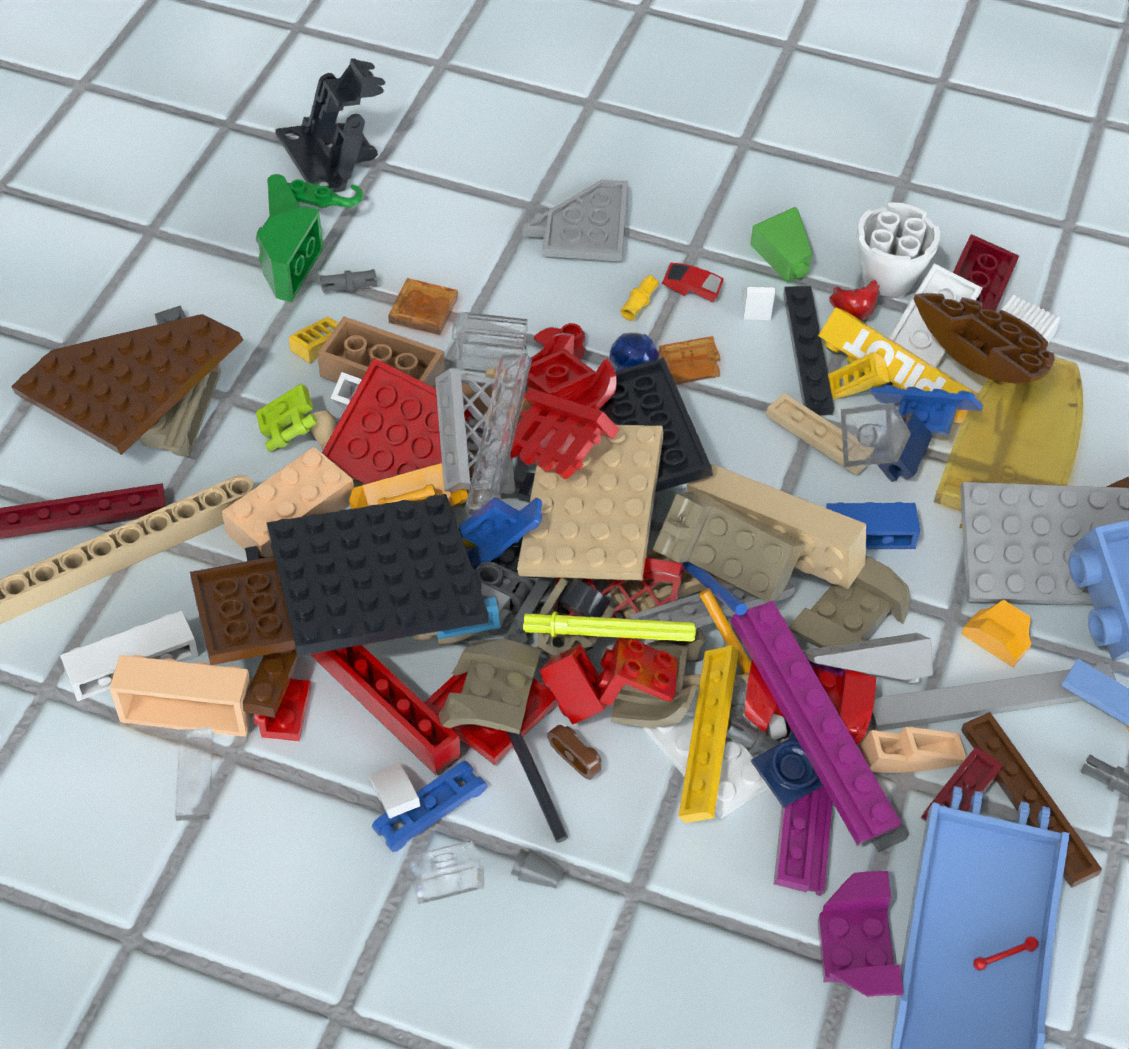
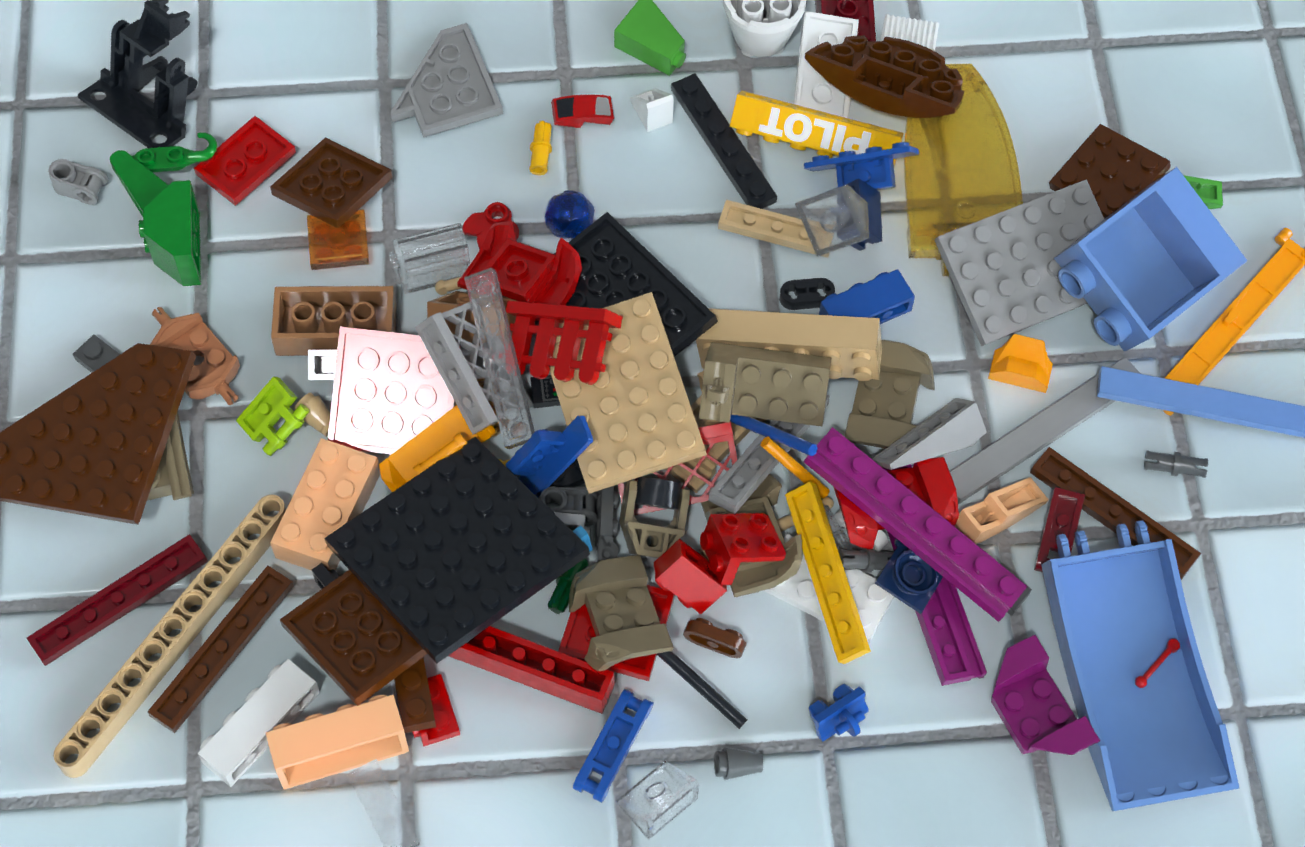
camera: 25 degrees left, 10 degrees up
(133, 584) = (220, 649): none -> reddish brown plate
(236, 188) = (79, 181): none -> light grey piece
(259, 339) = (192, 334): none -> nougat plate
(299, 340) = (250, 334): yellow slope -> none
(348, 280) = (248, 240): dark grey pin -> none
(381, 221) = (245, 160): none -> red plate
(394, 790) = (577, 745): white slope -> none
(441, 259) = (331, 182): none -> reddish brown plate
(449, 661) = (560, 596): none -> dark green axle
(609, 627) = (698, 513): neon yellow axle -> none
(658, 866) = (840, 716): none -> blue hips
(691, 359) = (624, 197): clear orange hinge -> none
(819, 492) = (806, 293): none -> black beam
(858, 302) = (746, 75): red hair -> none
(875, 375) = (801, 156): yellow slope -> none

